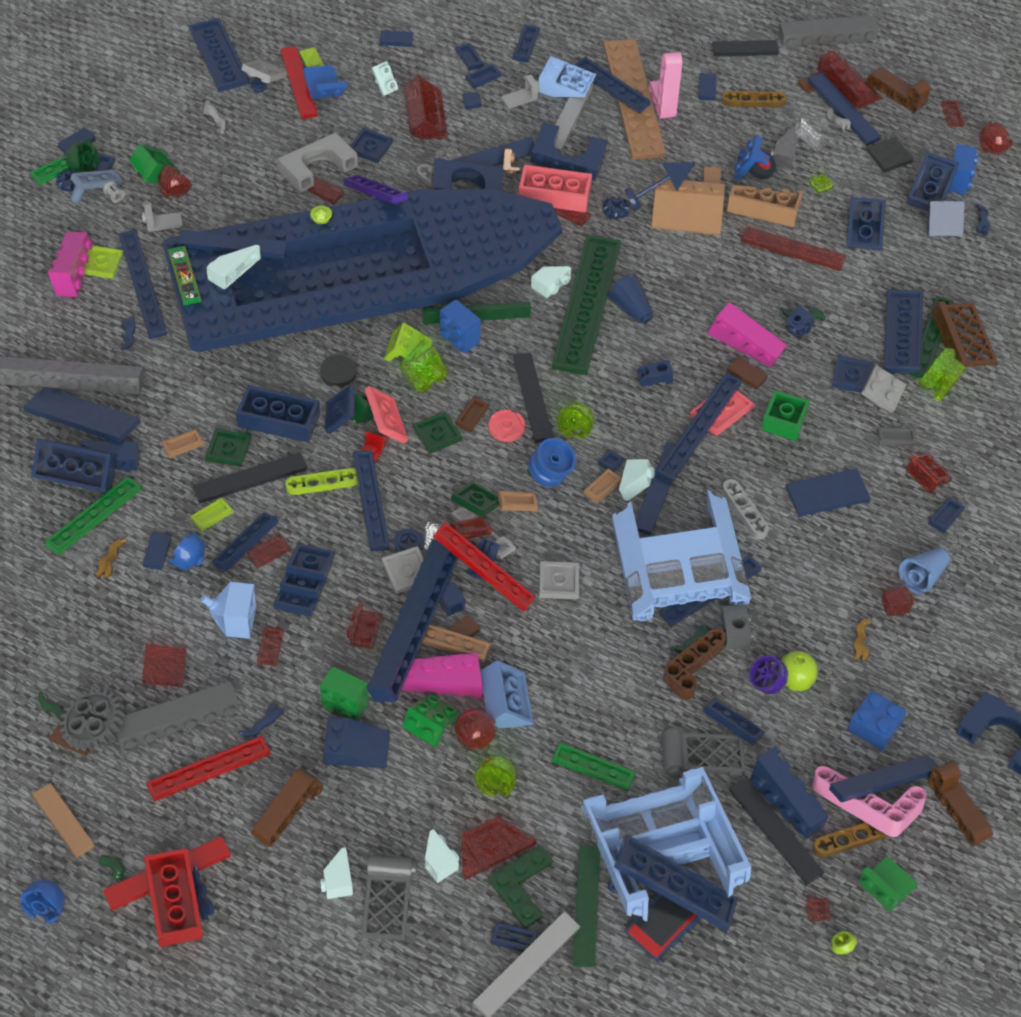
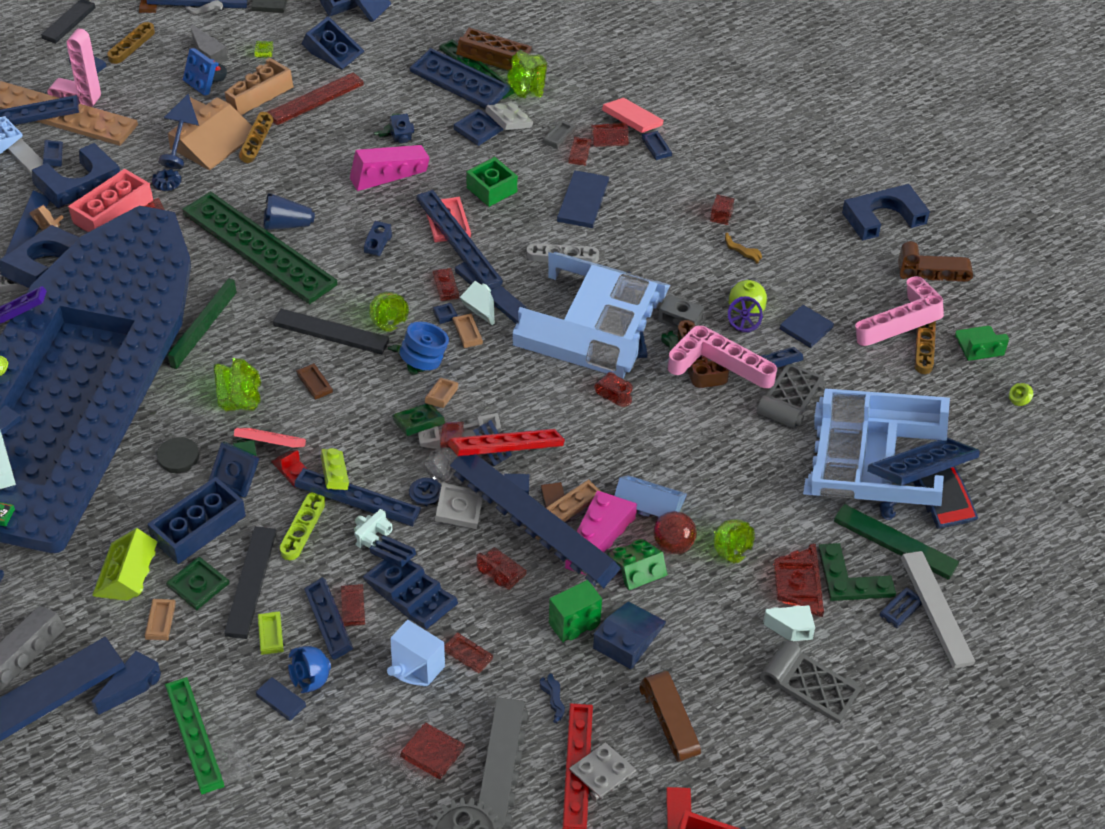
camera: 60 degrees left, 5 degrees down
(74, 465) = (121, 720): dark blue brick -> none
(106, 561) = (262, 751): pearl gold hair -> none
(209, 785) = (602, 770): none -> light grey hinge
(212, 398) = (126, 566): none -> lime slope
(333, 540) = (395, 548): none -> dark blue tile
(337, 877) = (767, 708): light aqua slope -> none
(346, 523) = (369, 526): none -> light aqua hips
(384, 470) = (334, 469): none -> lime plate
(403, 341) = (191, 388): lime bracket -> none
(437, 432) = (314, 415): dark green tile -> none
(460, 326) = (214, 337): blue brick -> none
(504, 430) = (347, 369): coral tile -> none
(550, 279) = (210, 257): light aqua slope -> none
(559, 580) = (549, 404): light grey plate -> none
(585, 125) = (53, 153): none -> dark blue tile
(593, 766) = (757, 472): green tile -> none
(609, 619) = (614, 389): none -> clear red piece
(644, 445) = (445, 284): none -> clear red plate
(688, 652) = (723, 352): none -> bright pink beam
(709, 233) = (254, 136): none -> pearl gold beam
(747, 373) = (422, 185): reddish brown tile -> none
(776, 831) = (897, 384): black tile -> none
(787, 793) = (866, 358): dark blue wedge -> none
(801, 732) = (806, 326): none -> dark blue tile
(809, 134) = (208, 28): clear tile -> none
(818, 909) = (979, 396): clear red tile -> none
(877, 720) = (828, 274): blue brick -> none
(883, 778) = (891, 293): dark blue tile -> none
(888, 462) = (580, 151): none -> clear red tile
(923, 570) = (706, 179): medium blue cone -> none
(967, 477) = (632, 115): none -> coral tile

